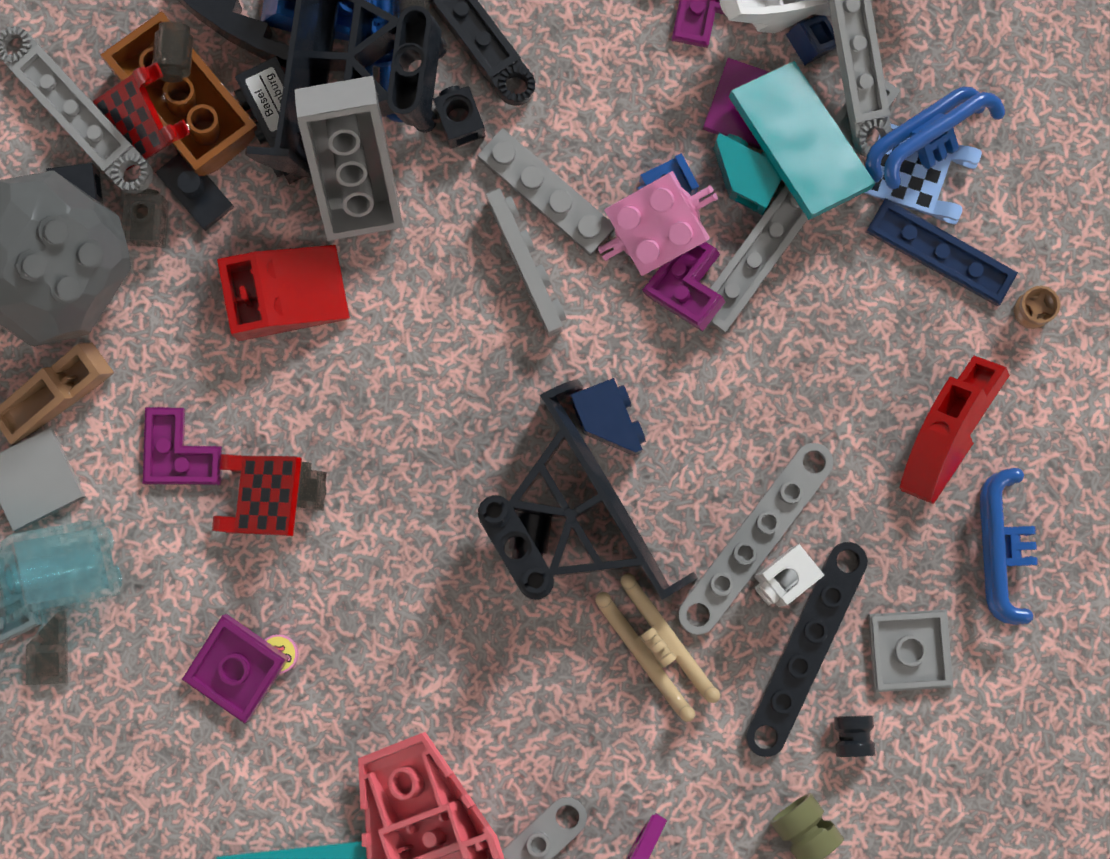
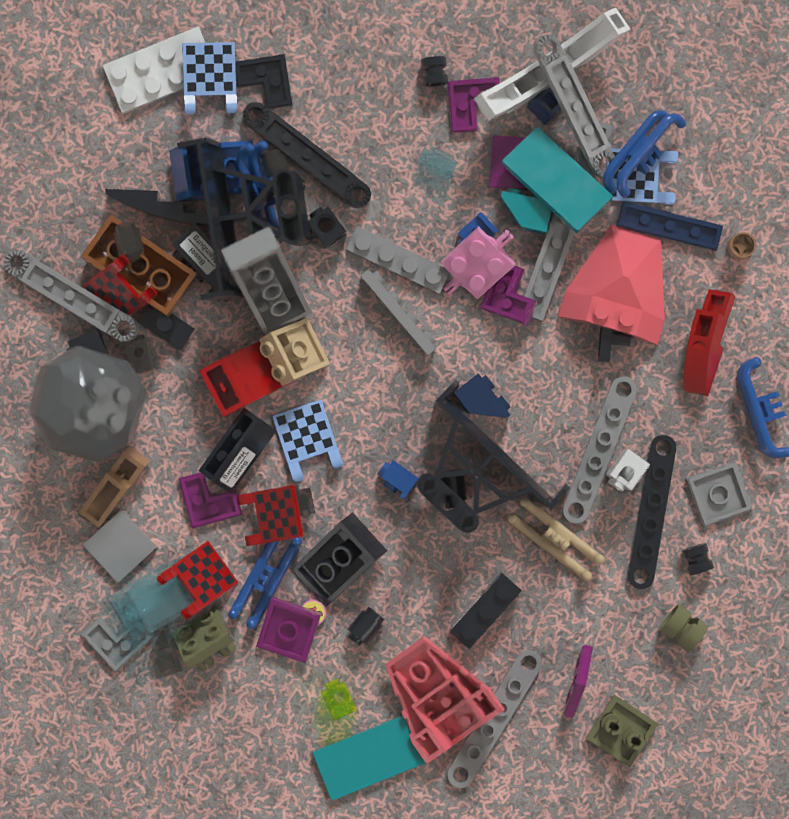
camera: 15 degrees left, 5 degrees up
(106, 644) = (204, 638): none -> olive plate
(133, 553) = (202, 576): none -> red flag
(224, 585) = (264, 578): none -> blue piece
(238, 390) = (237, 450): none -> black brick
(271, 804) = (341, 708): none -> clear neon green brick
(338, 587) = (339, 559): none -> black slope
(342, 398) = (306, 434): none -> light blue flag
(346, 696) = (365, 626): none -> black brick
(360, 274) = (293, 352): none -> tan plate
(455, 495) = (397, 478): none -> blue brick
(525, 722) = (485, 610): none -> black brick
(639, 73) = (437, 163): none -> clear light blue brick
(815, 381) = (607, 338): none -> black tile
(849, 316) = (620, 286): none -> coral wedge

